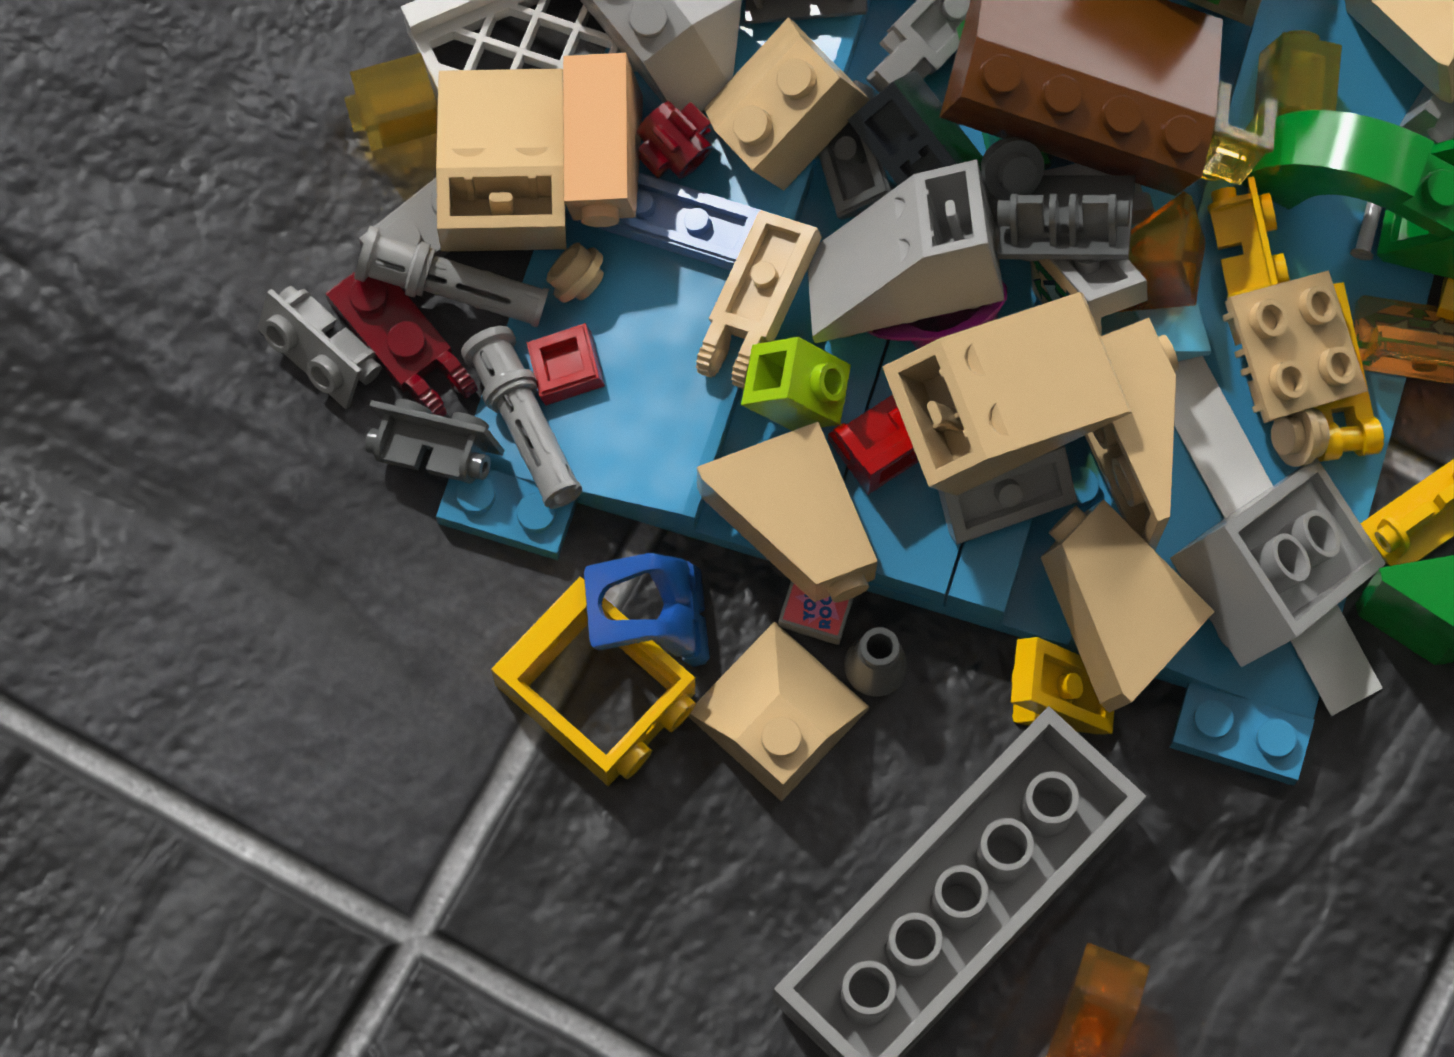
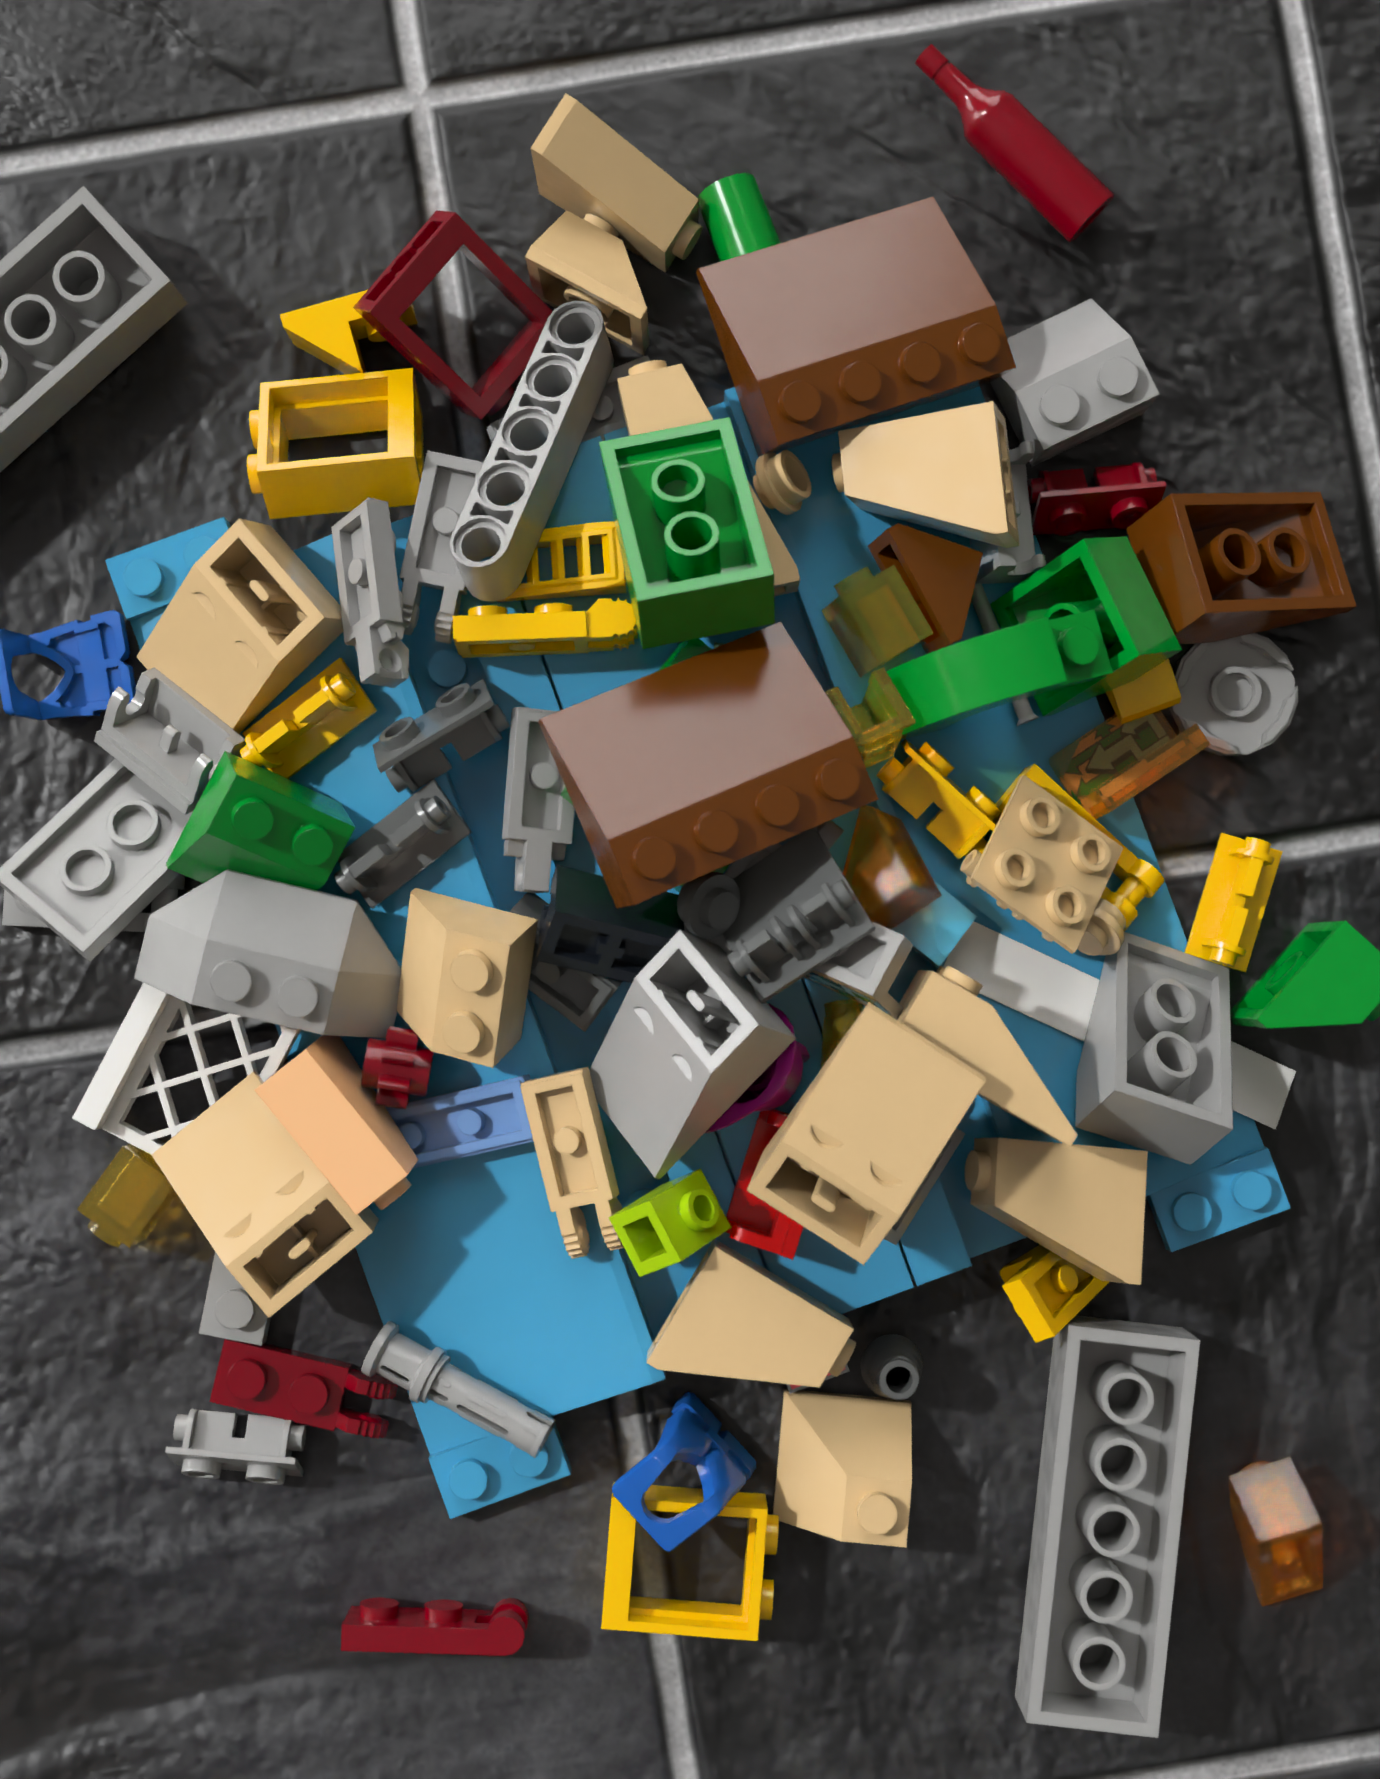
camera: 40 degrees left, 15 degrees up
(361, 587) = (435, 1629): none -> dark red plate
(420, 271) = (293, 1327): light grey pin -> none
(455, 442) = (376, 1472): dark grey hinge -> none
(565, 364) = (455, 1316): tile -> none
(576, 273) = (403, 1236): tan plate -> none
(1369, 74) = (936, 574): none -> reddish brown slope

